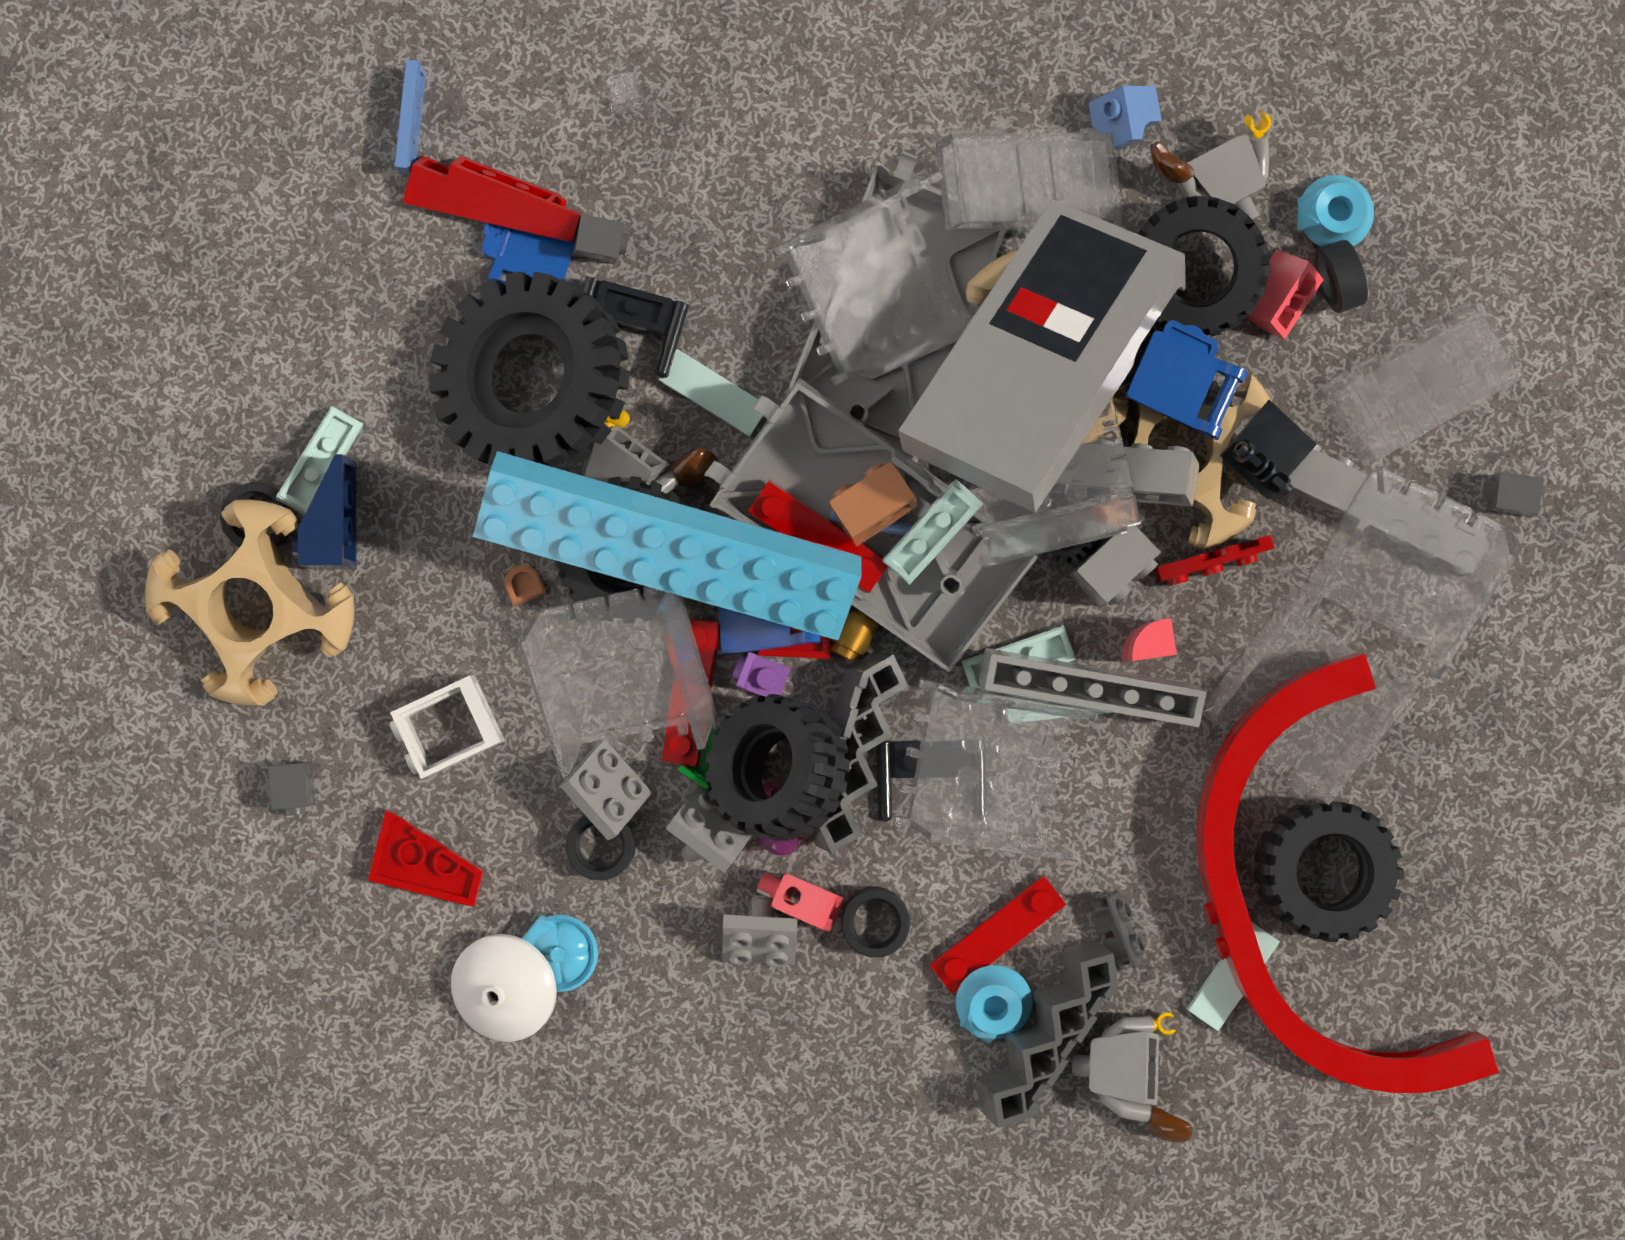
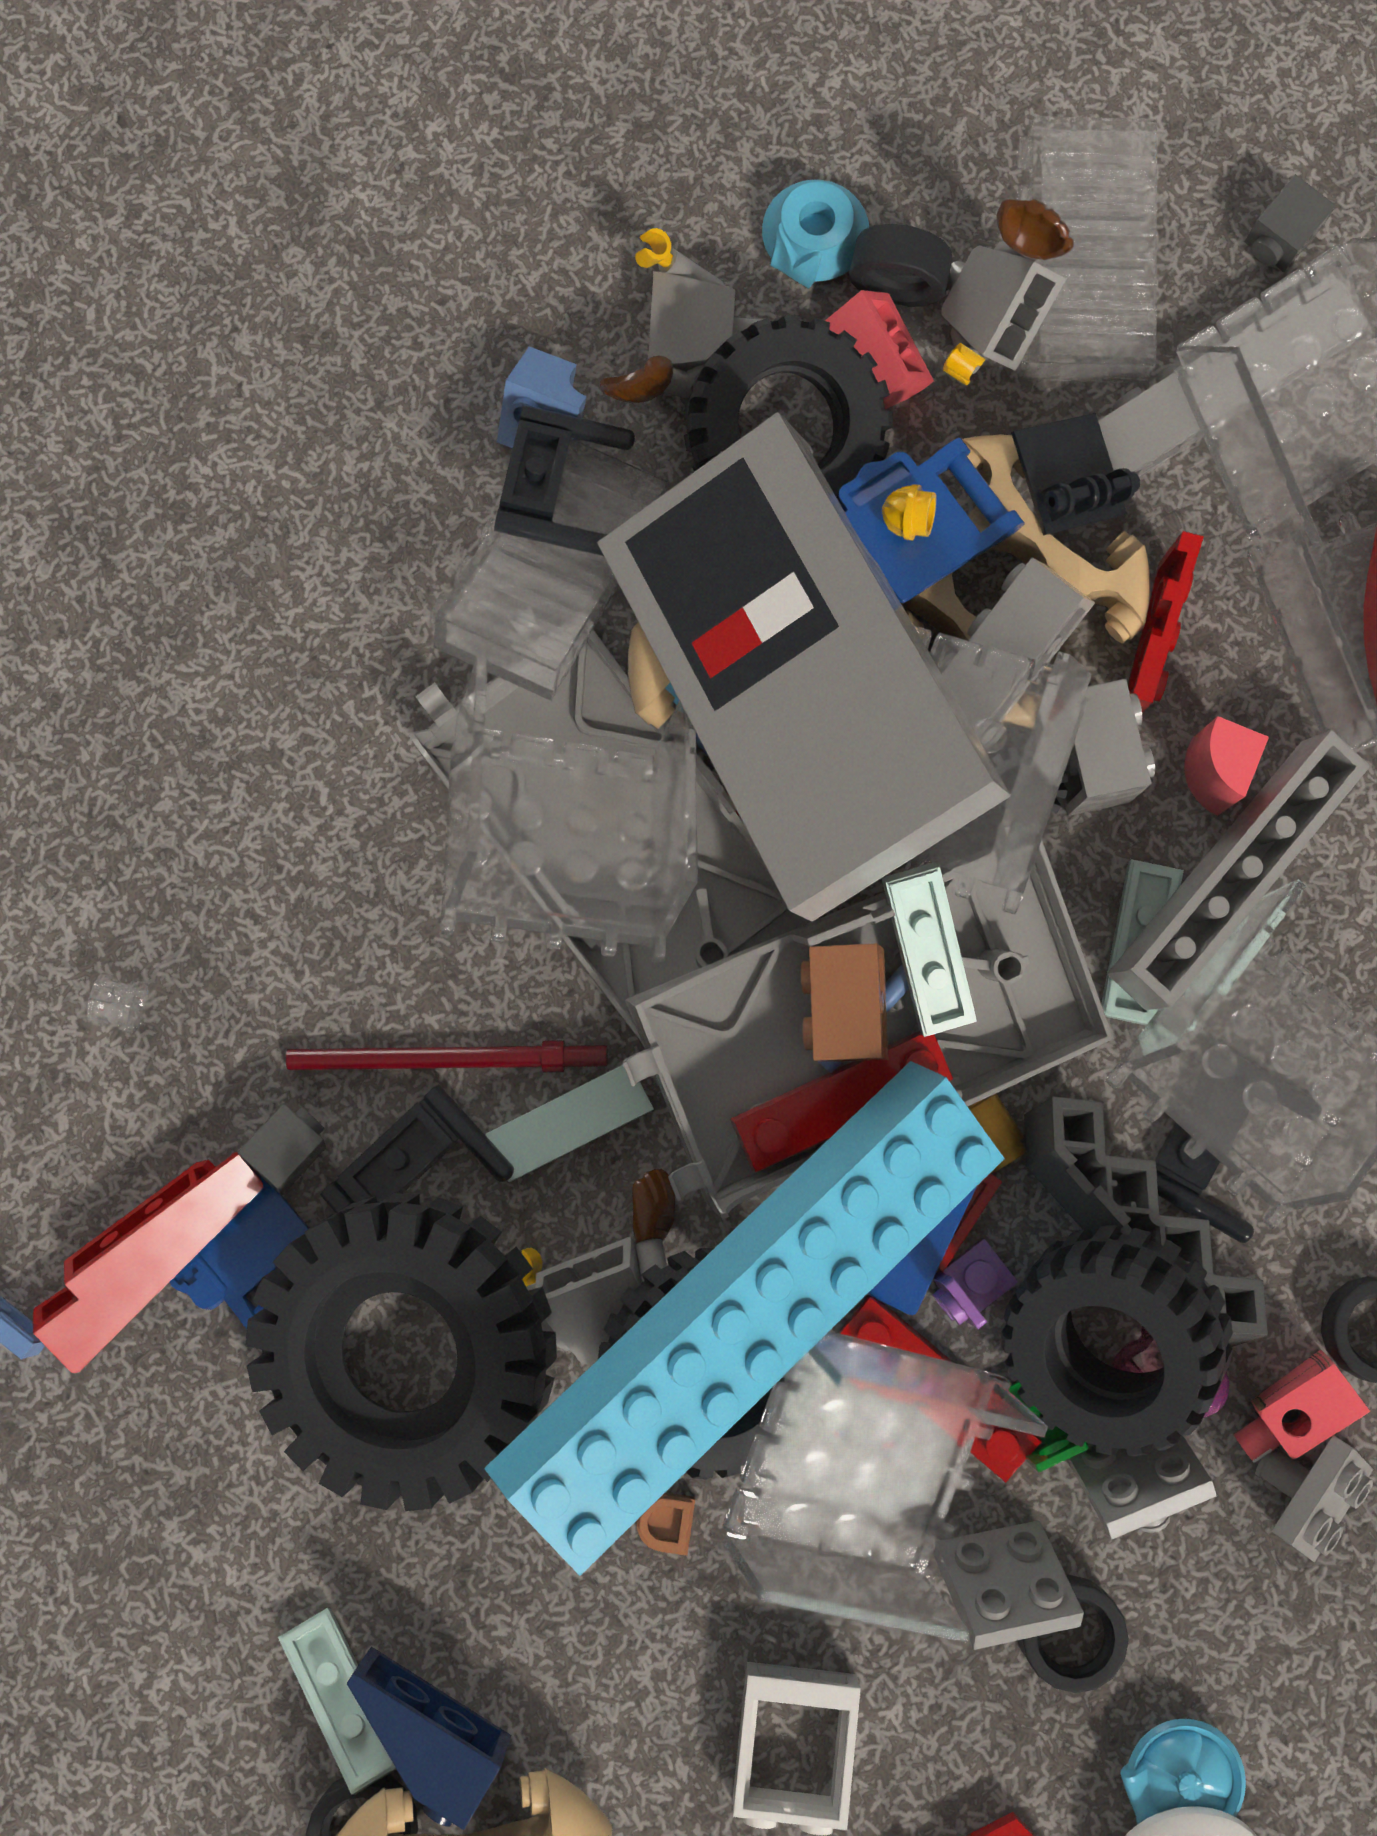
camera: 50 degrees left, 5 degrees down
(744, 359) = (551, 1056): none -> dark red bar
(1077, 138) = (537, 472): none -> black plate
(1180, 368) = (910, 512): none -> yellow plate
(1355, 346) = (1002, 291): none -> light grey torso

